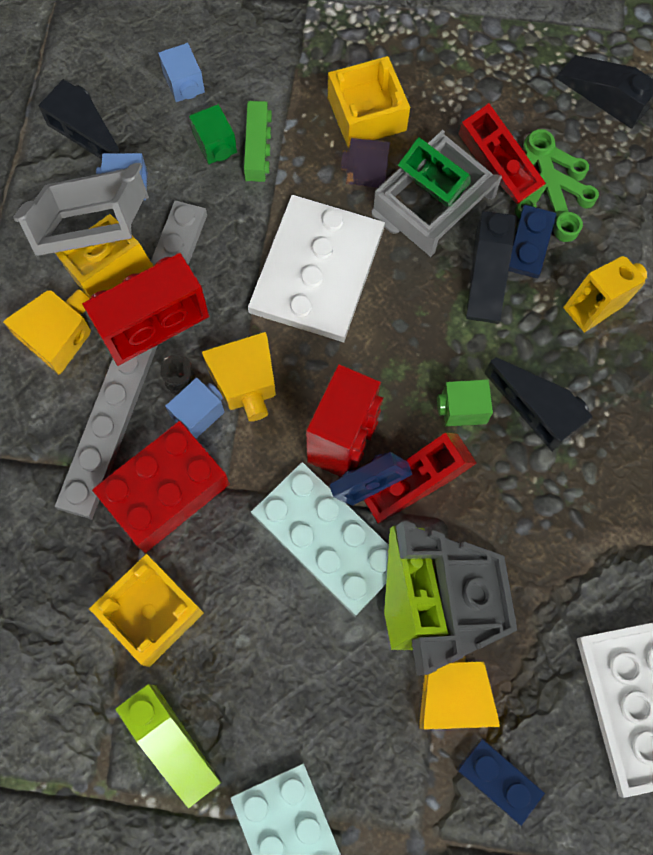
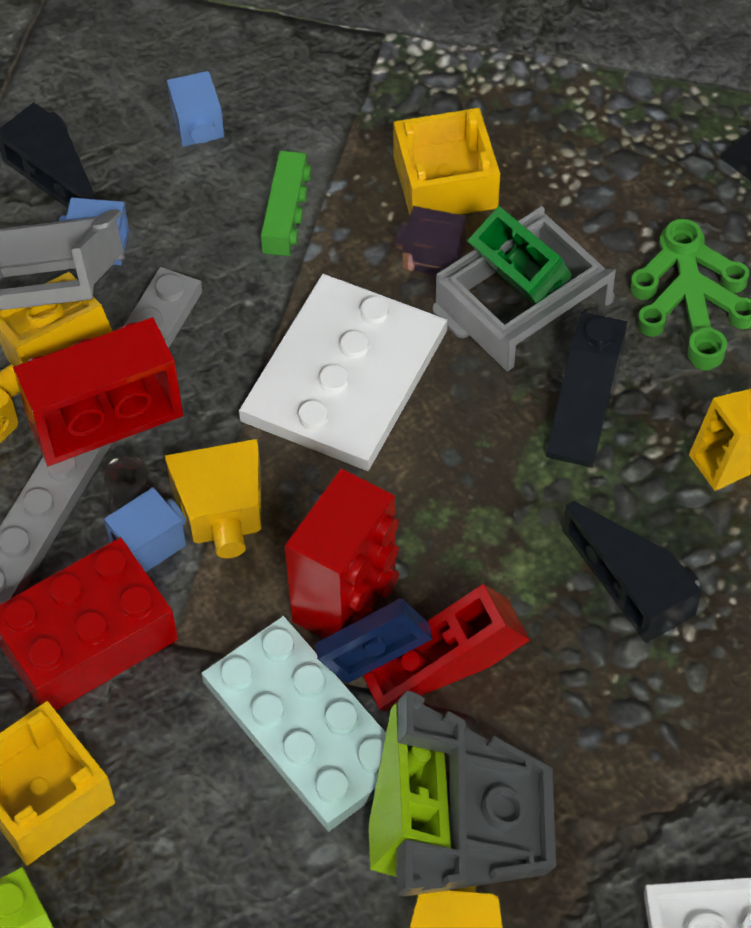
camera: 10 degrees right, 15 degrees down
(213, 134) = (226, 188): green brick -> none
(465, 403) = (525, 561): bright green brick -> none
(500, 153) = (620, 243): red slope -> none
(531, 241) = (651, 363): dark blue plate -> none

